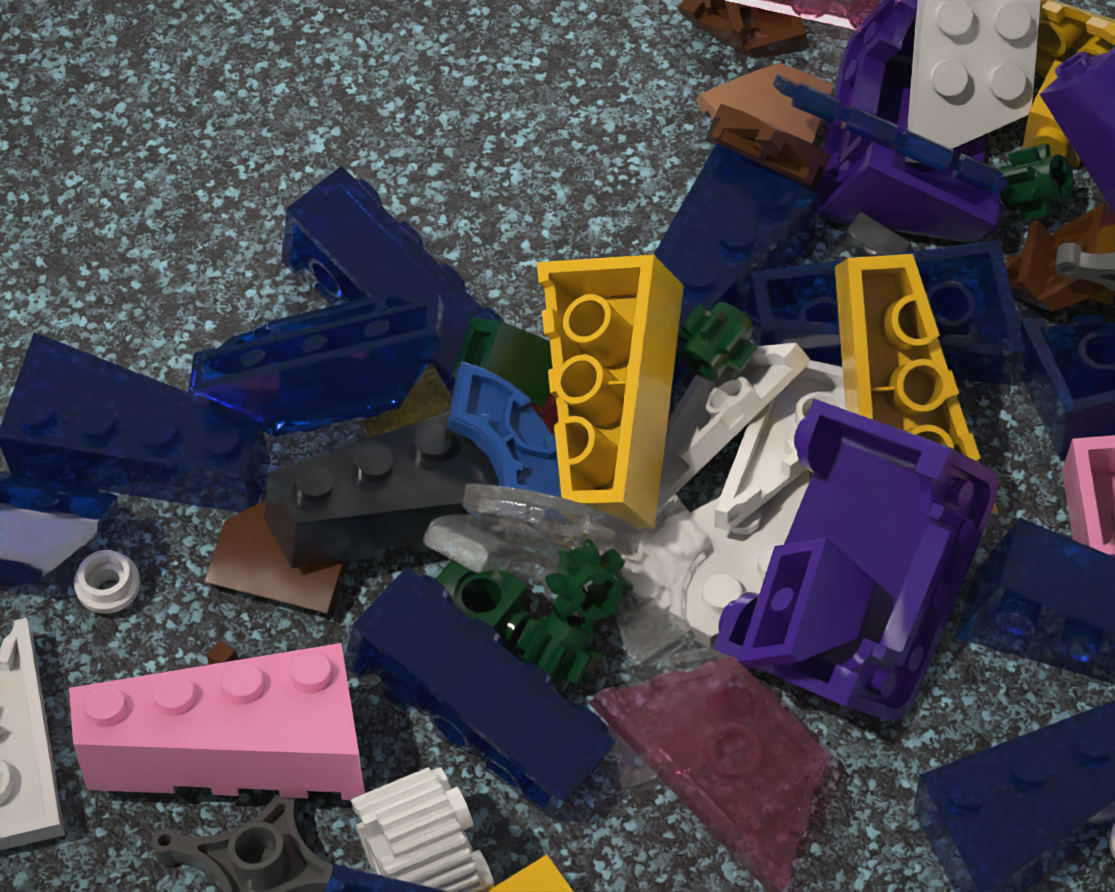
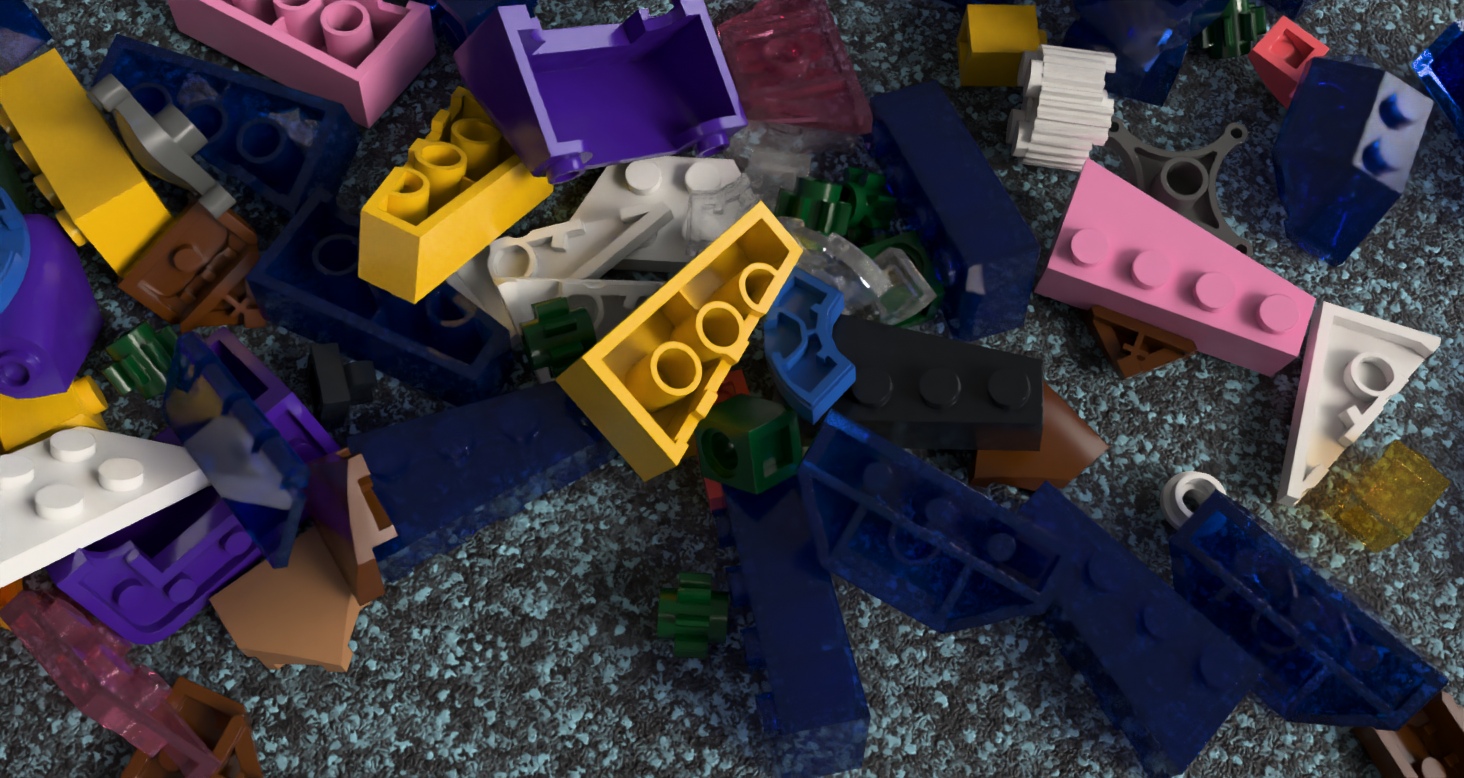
camera: 155 degrees left, 10 degrees up
(473, 255) = (692, 615): none -> dark green gear
(806, 604) = (678, 65): dark purple slope -> none

